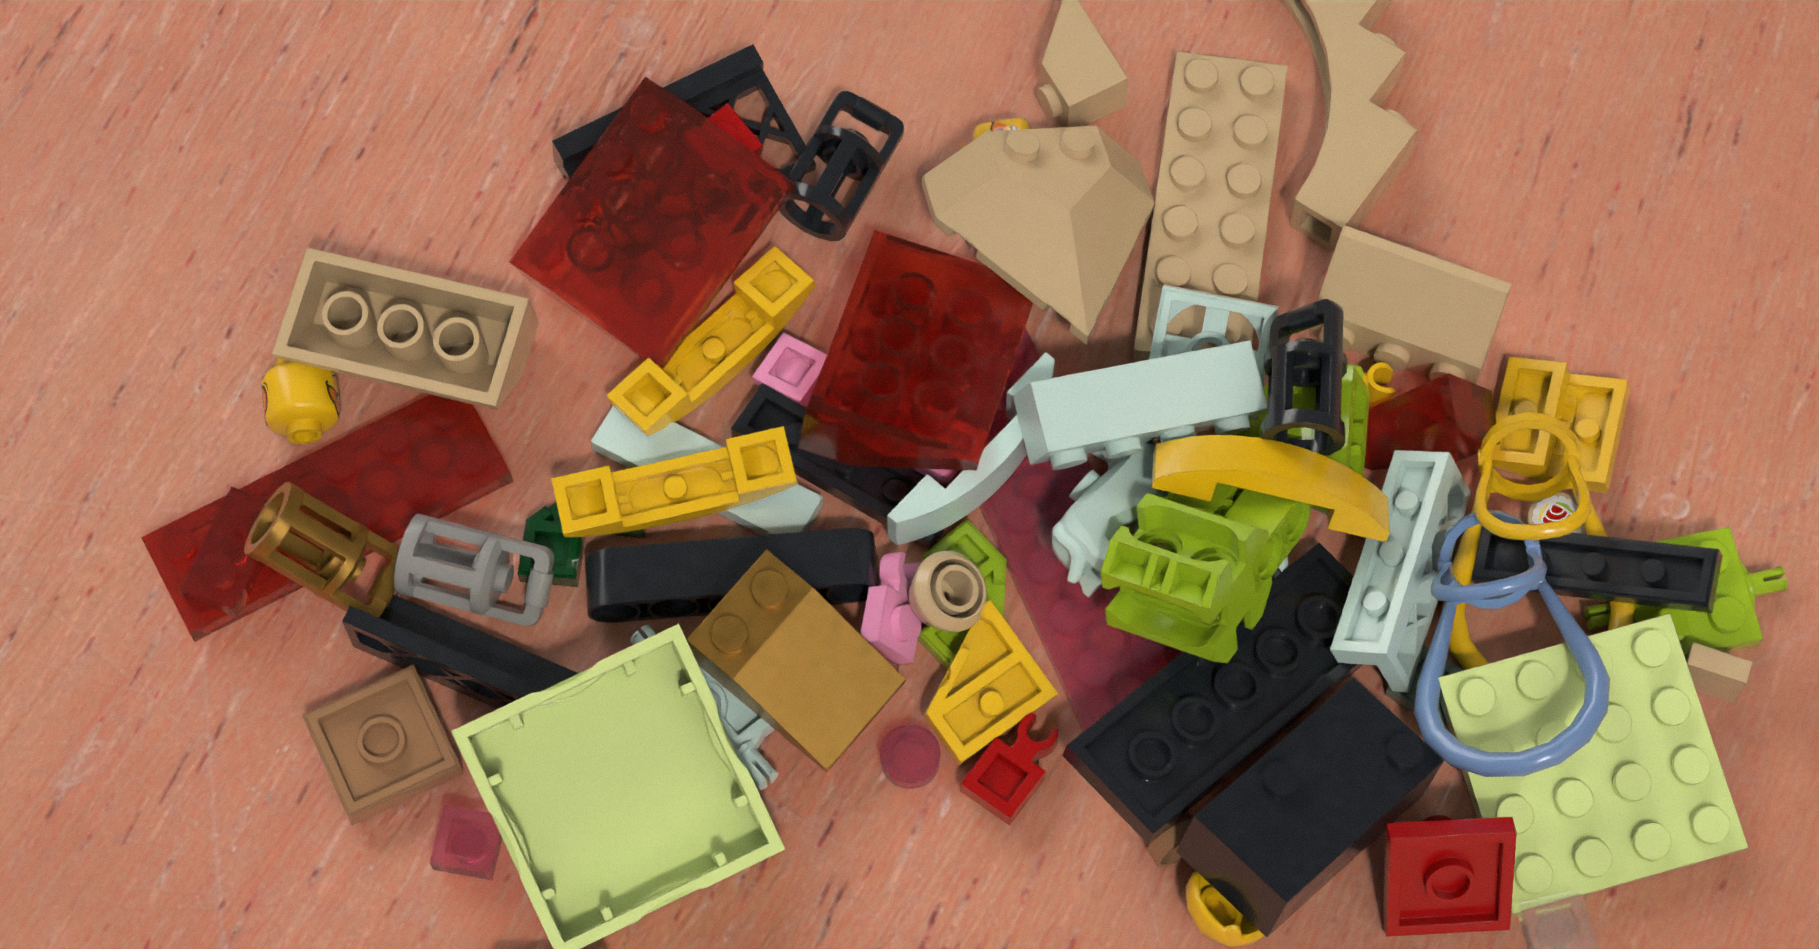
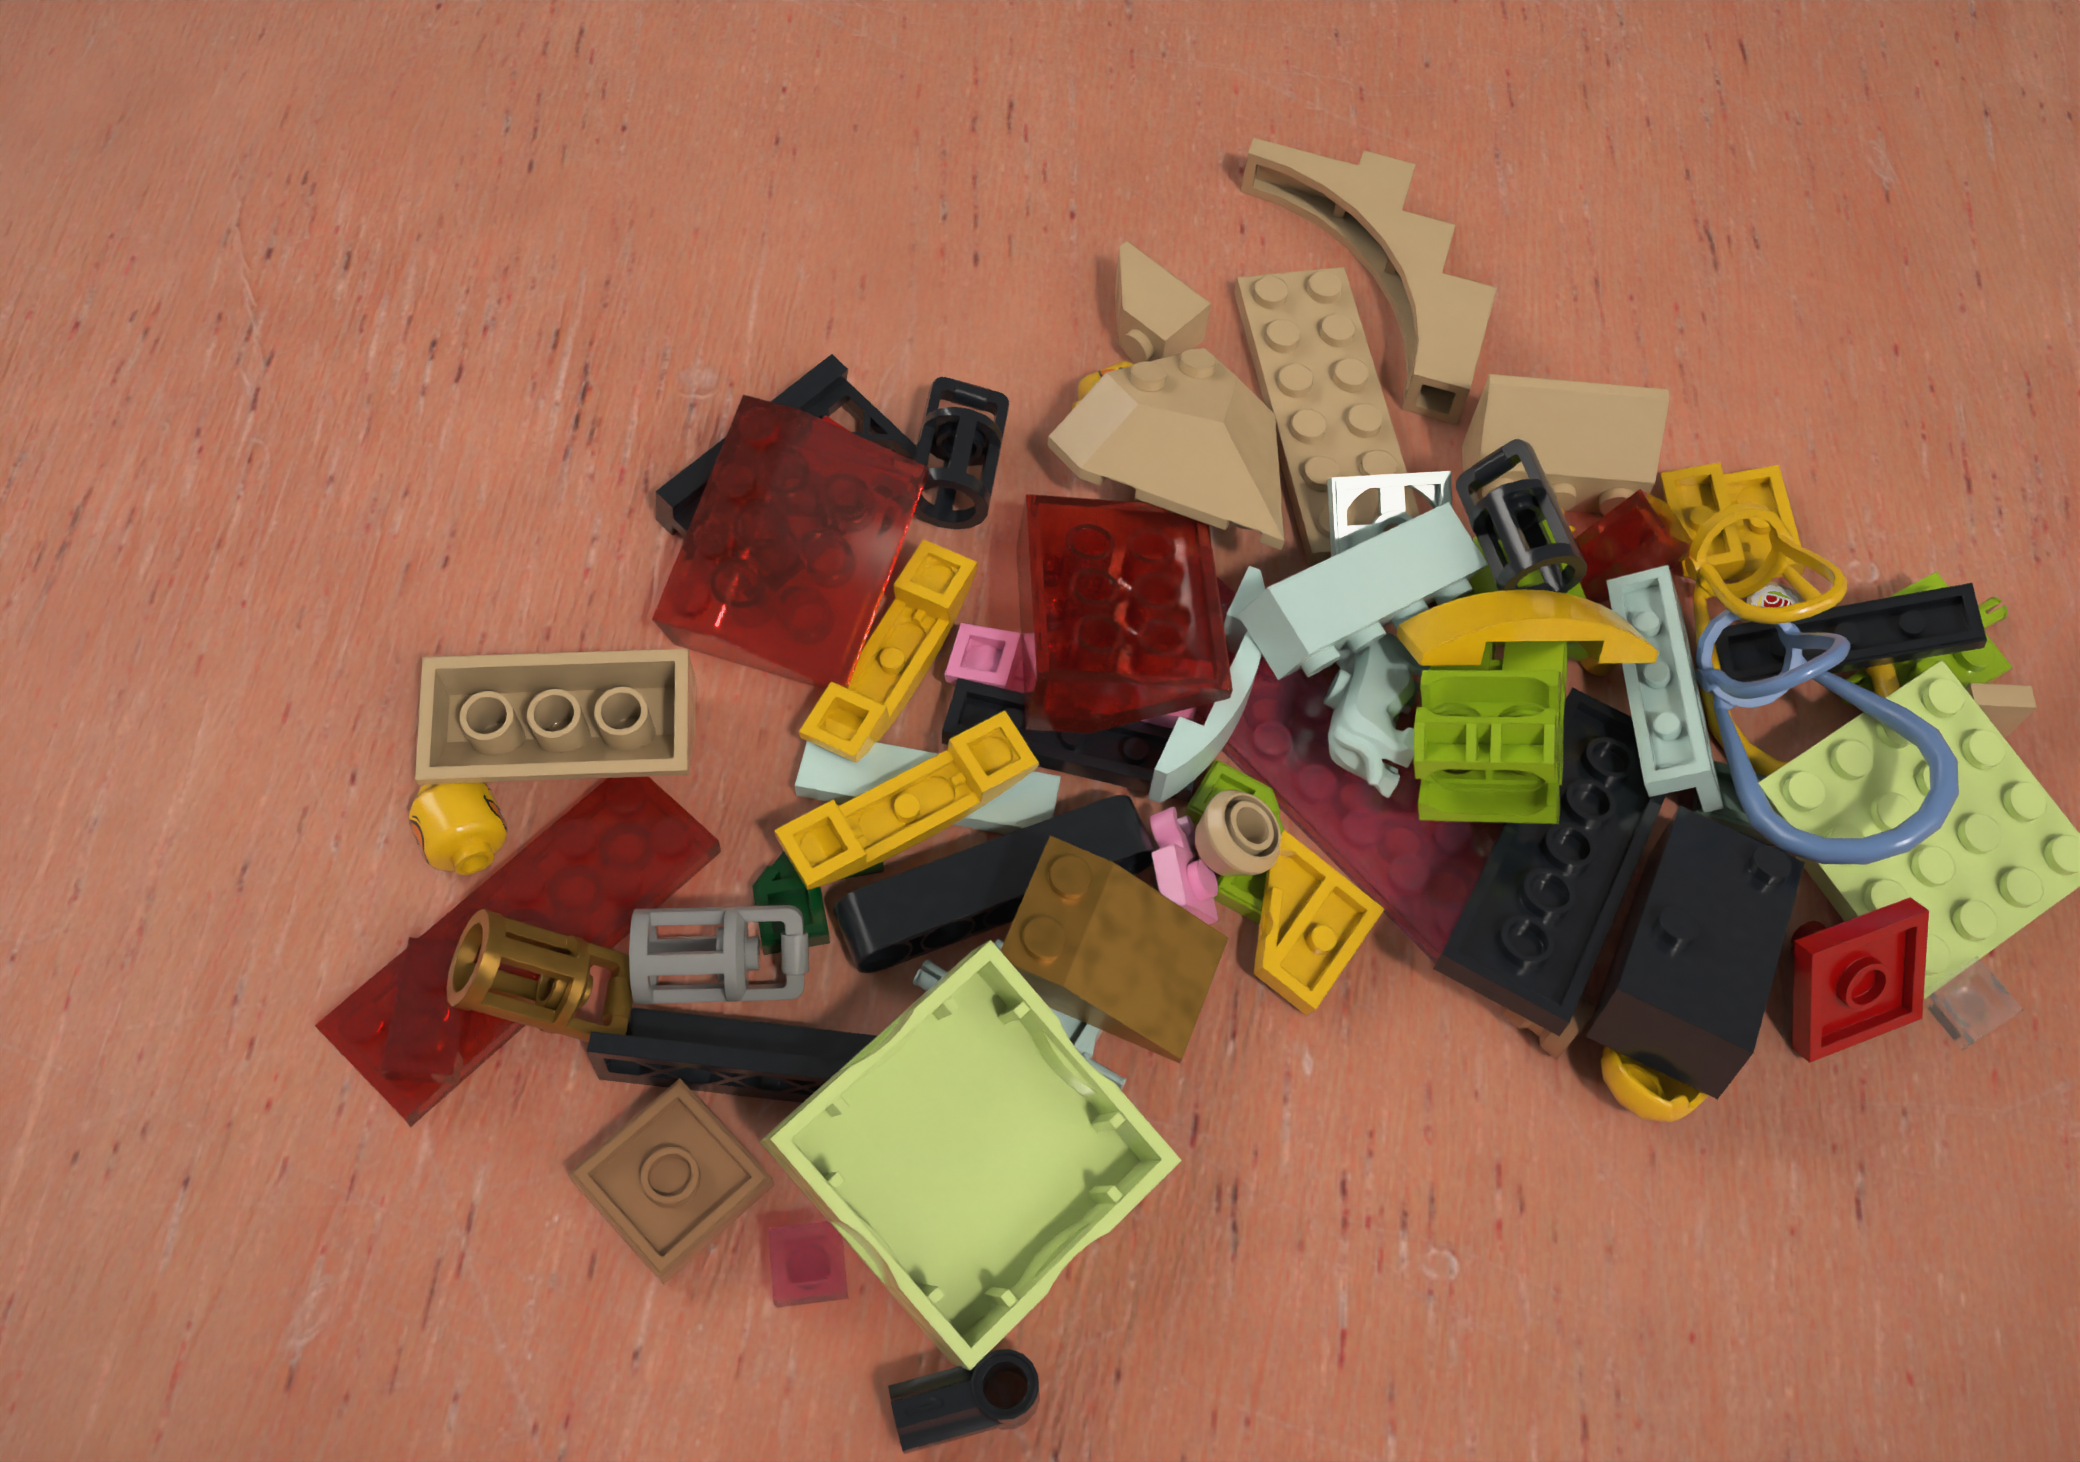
camera: 25 degrees left, 5 degrees down
(910, 756) = (1254, 1020): clear pink tile -> none
(1008, 775) = (1364, 1008): red plate -> none

